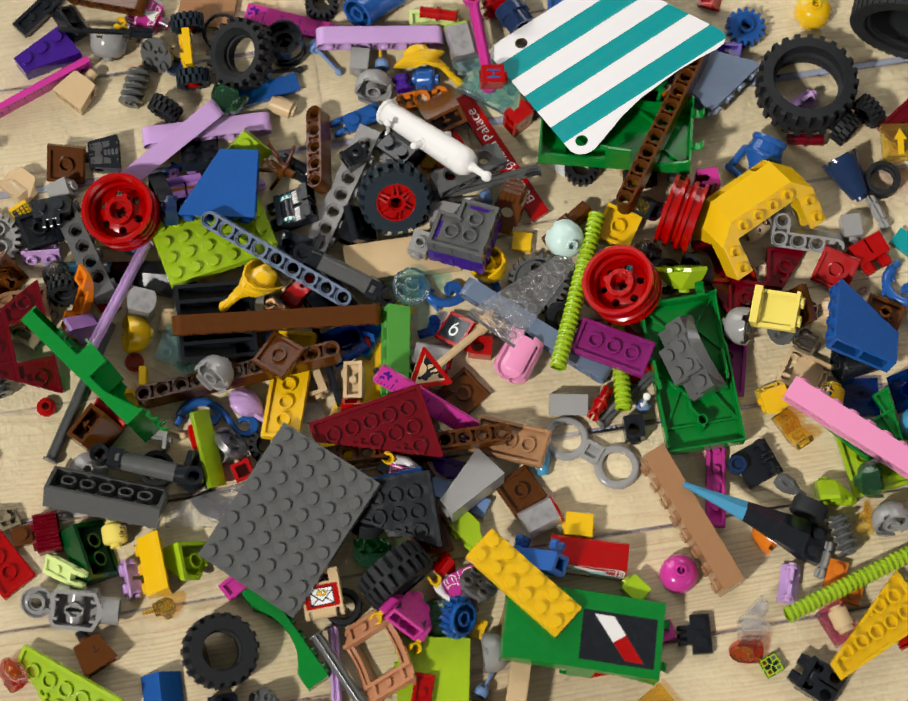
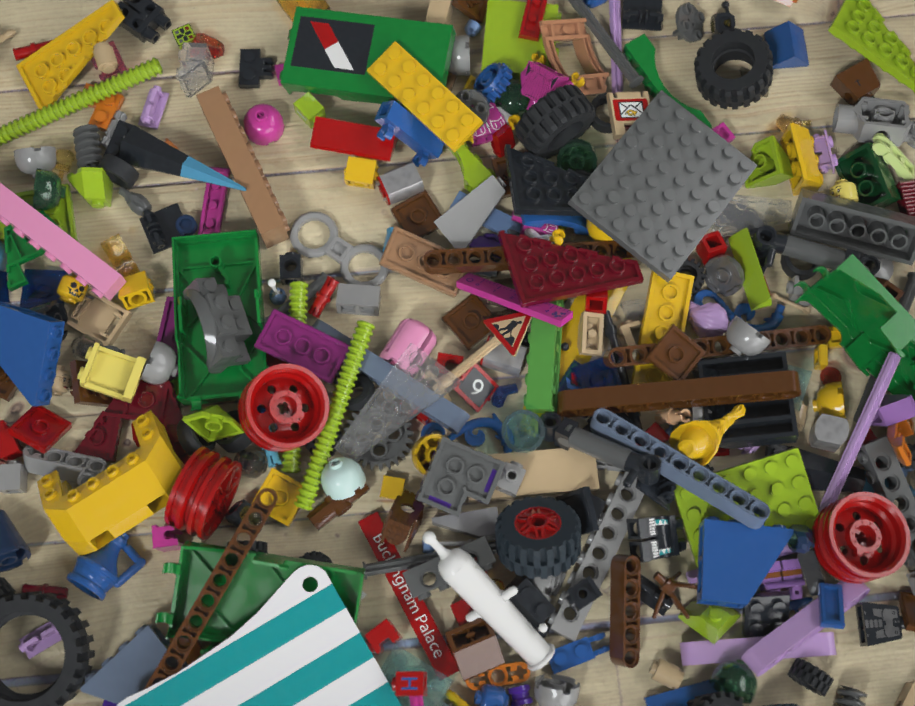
camera: 175 degrees left, 0 degrees up
(148, 158) = (831, 606): none -> blue tile

